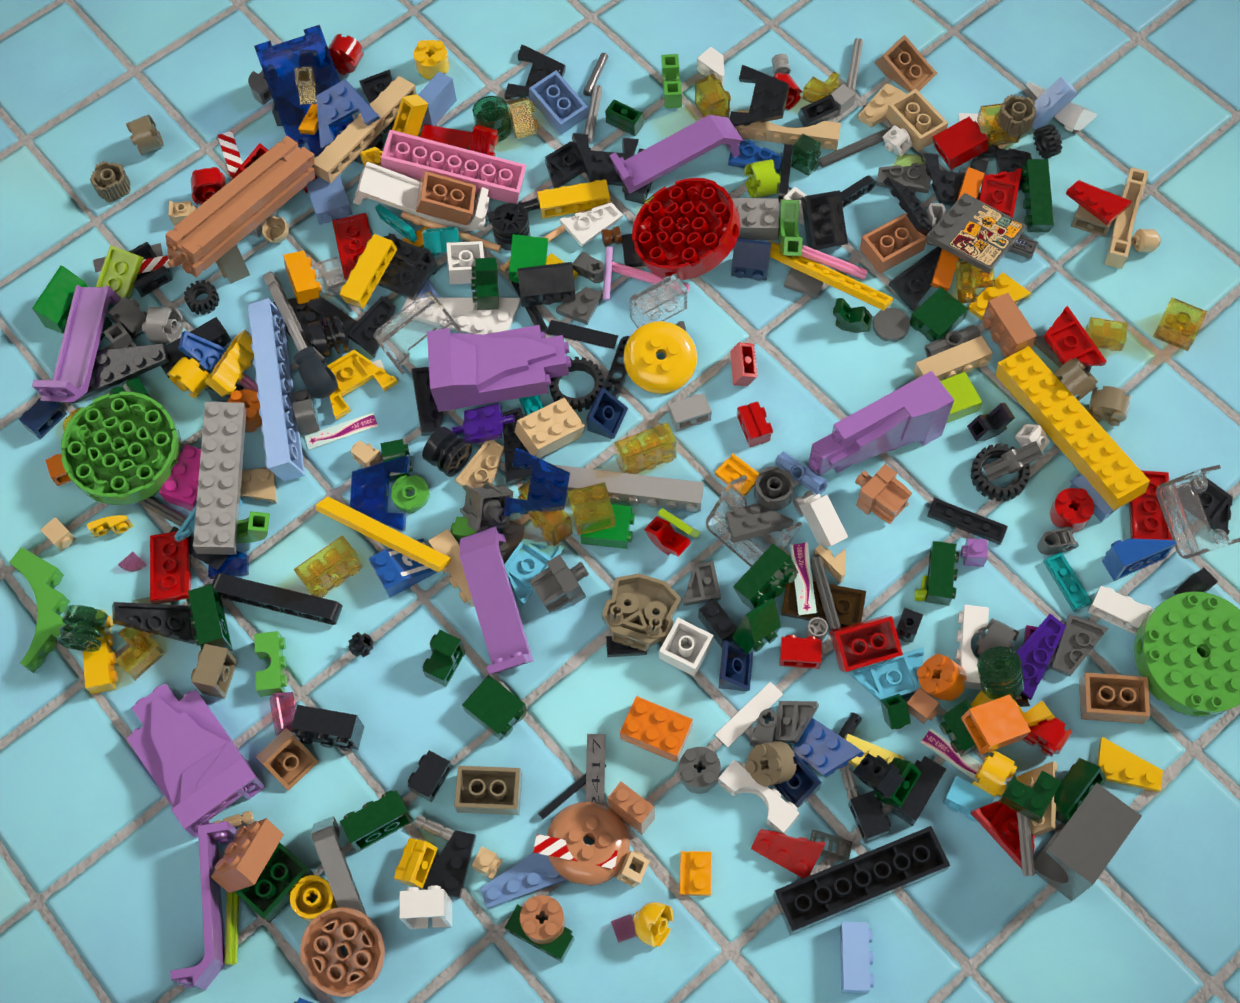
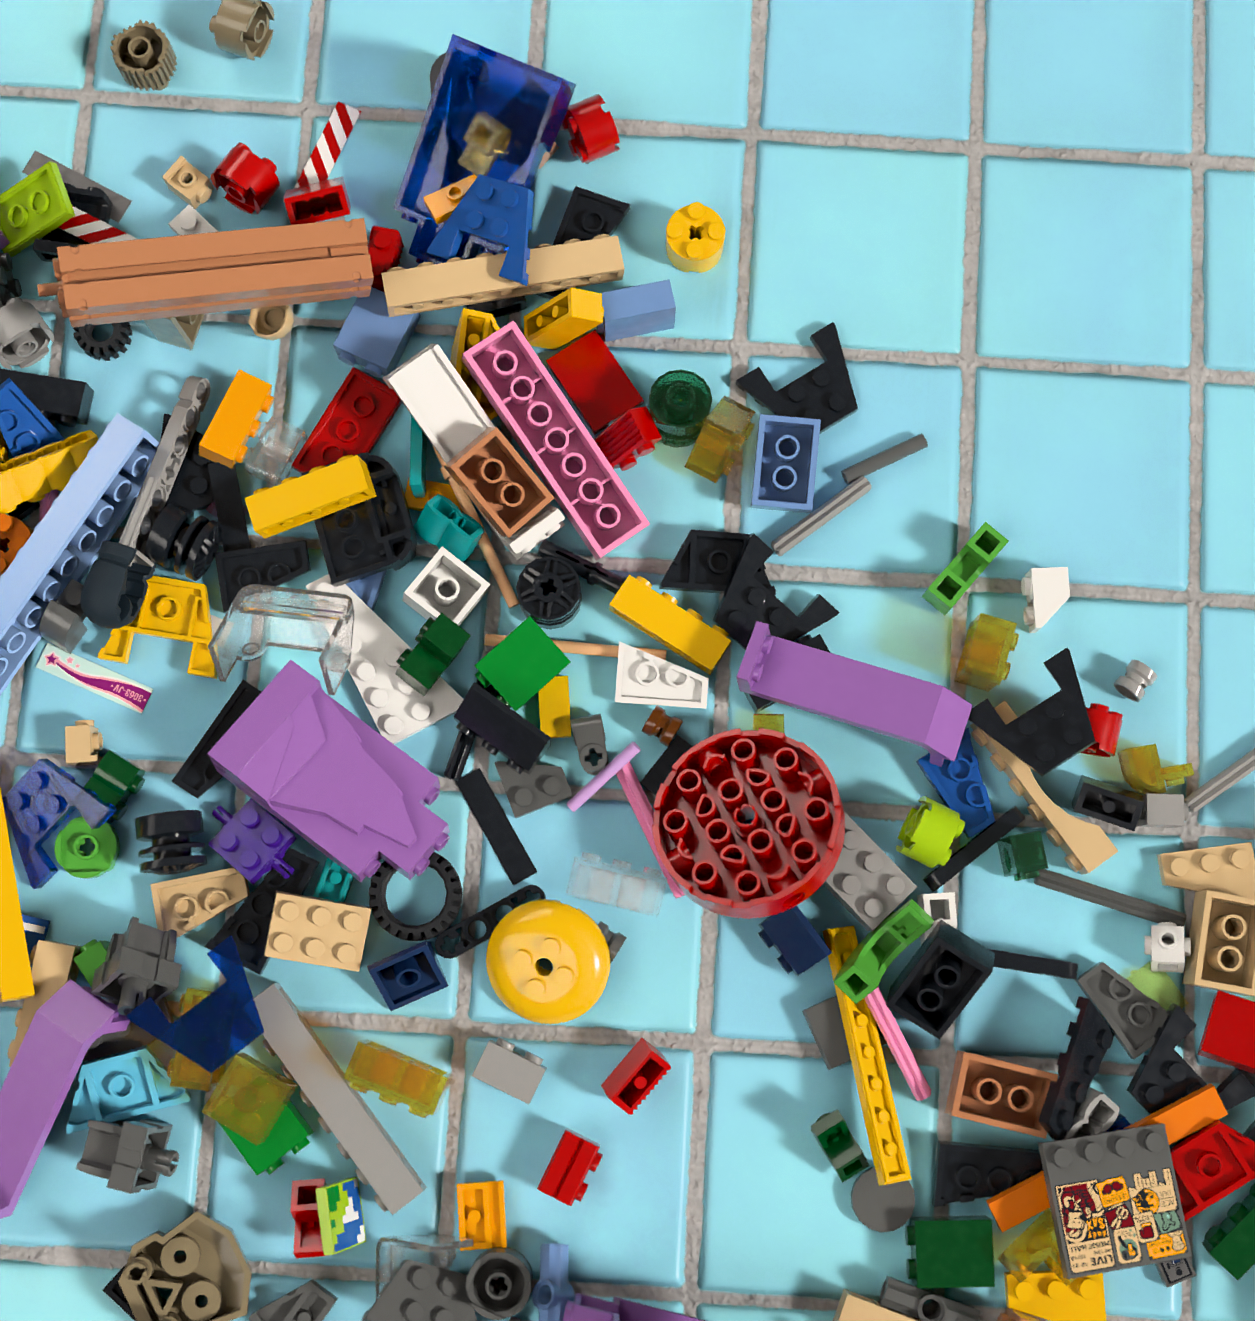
camera: 40 degrees right, 15 degrees up
(624, 117) = (848, 567): dark green brick -> none

